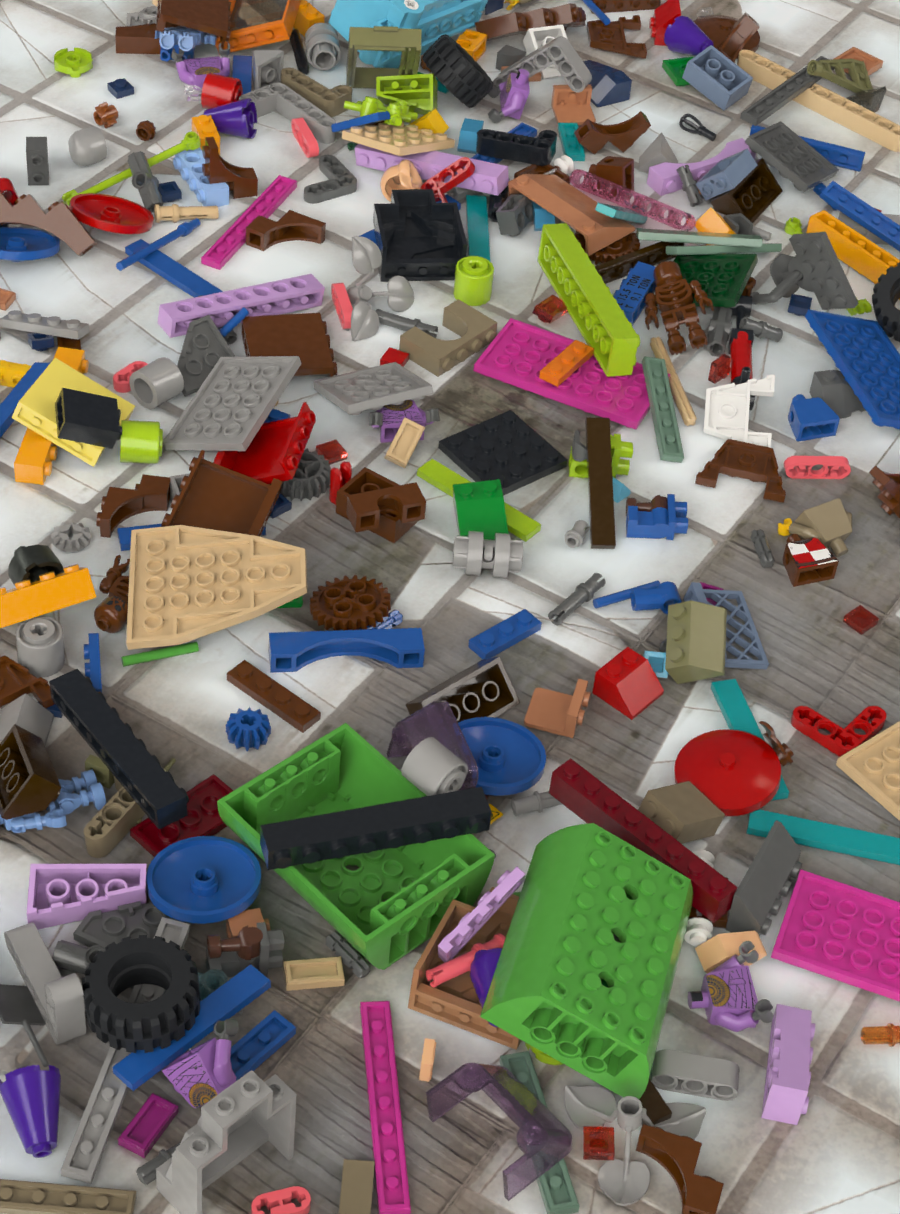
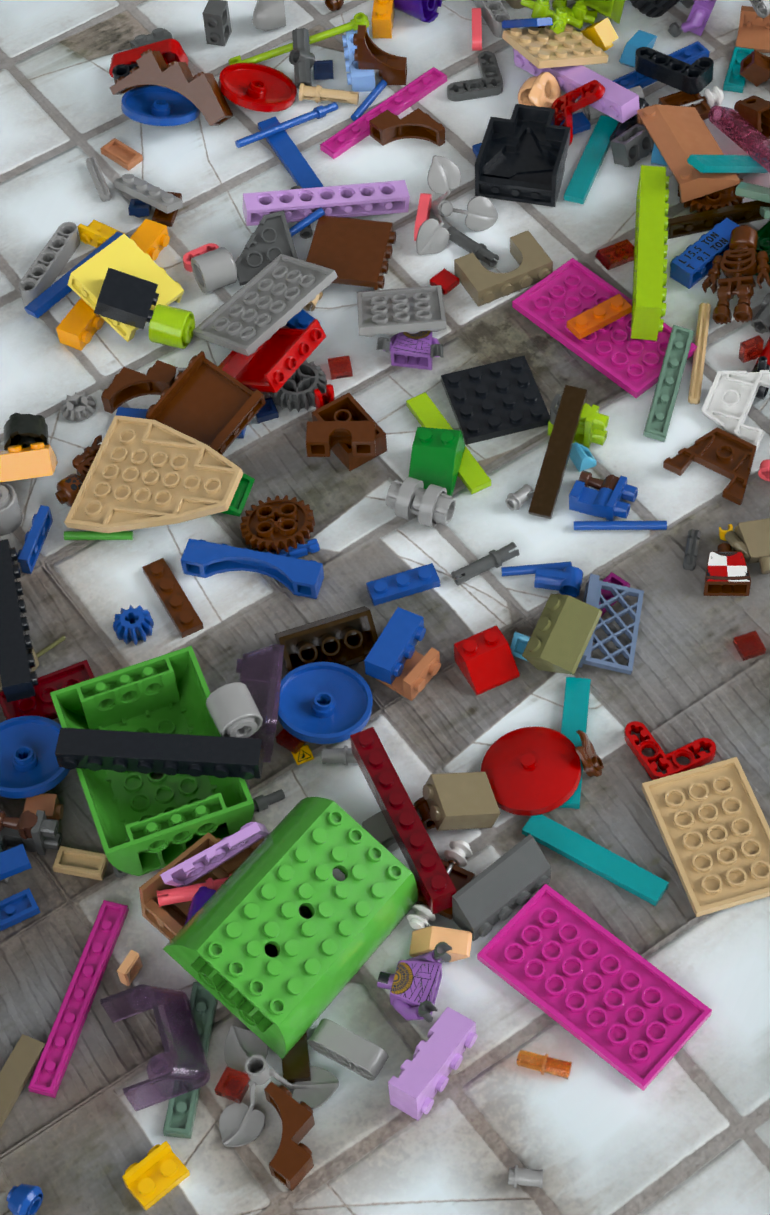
camera: 30 degrees right, 10 degrees up
(228, 213) = (369, 100): none -> blue bar
(404, 442) = (405, 372): tan tile -> none
(473, 280) = (555, 212): lime piece -> none
(536, 688) = (395, 646): none -> blue brick
(683, 541) = (620, 525): none -> blue bar

